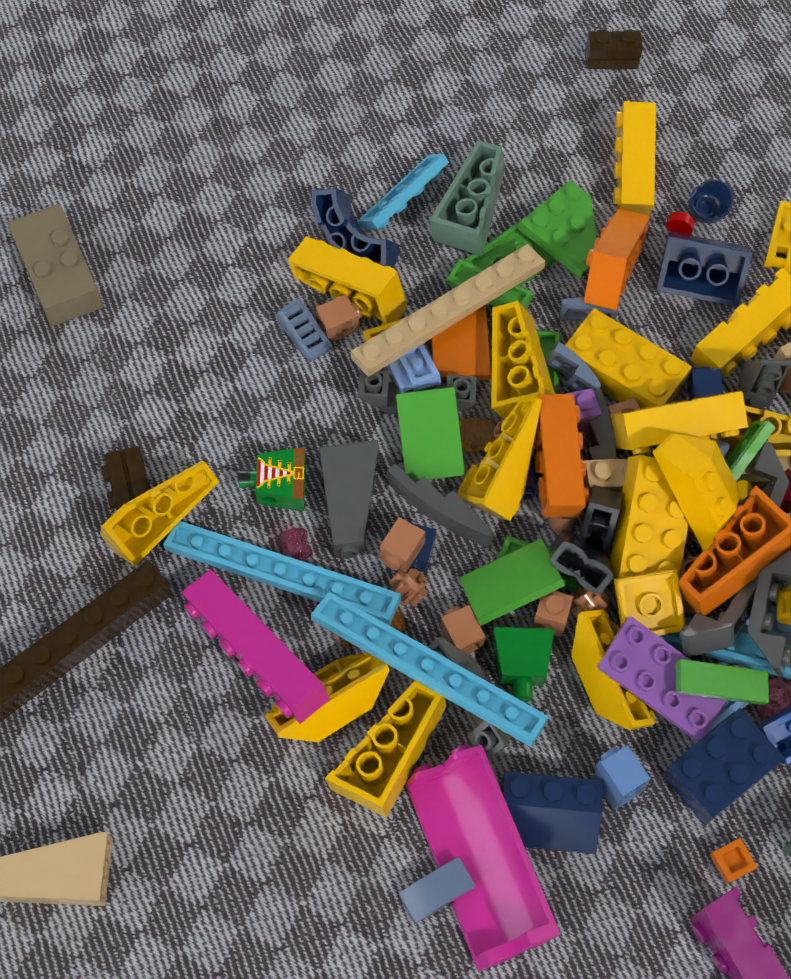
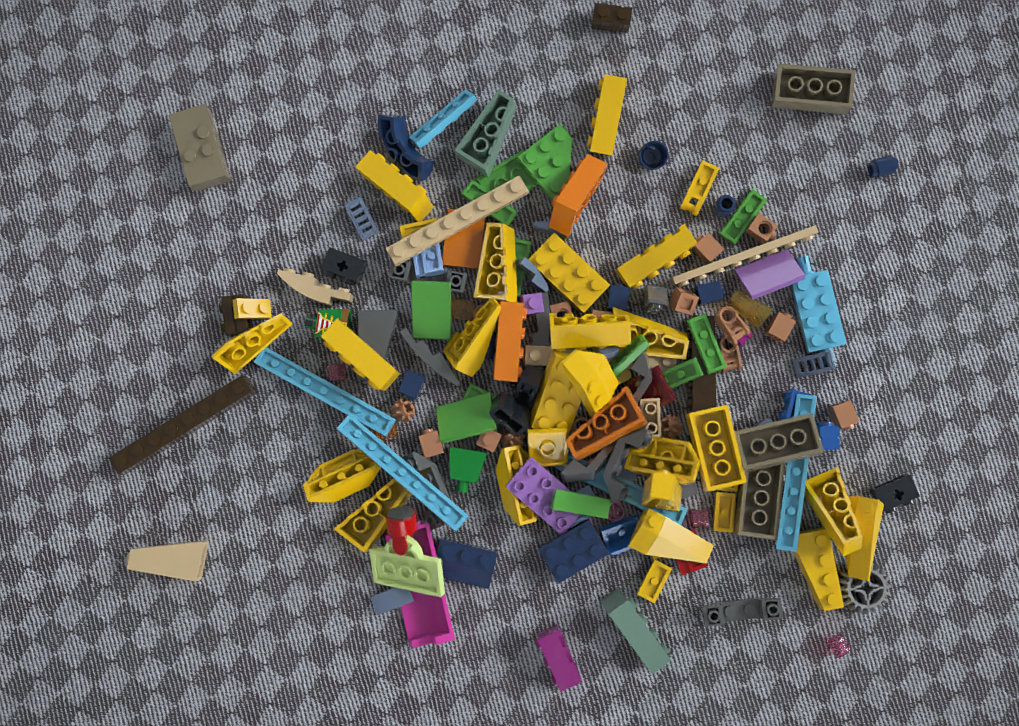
camera: 10 degrees right, 20 degrees up
(151, 464) = (252, 308): none -> yellow plate
(235, 430) = (308, 287): none -> tan slope
(255, 646) = (300, 441): dark pink brick -> none
(287, 394) = (336, 258): none -> black brick
(334, 499) = (362, 356): none -> yellow brick
(338, 318) = (385, 213): nougat brick -> none
(401, 545) = (399, 389): nougat brick -> none
(454, 813) = (402, 559): none -> yellowish green plate
(621, 776) = (508, 551): medium blue brick -> none
(680, 223) = (629, 169): red tile -> none
(704, 268) = (637, 206): dark blue slope -> none
(733, 861) = (567, 606): orange plate -> none

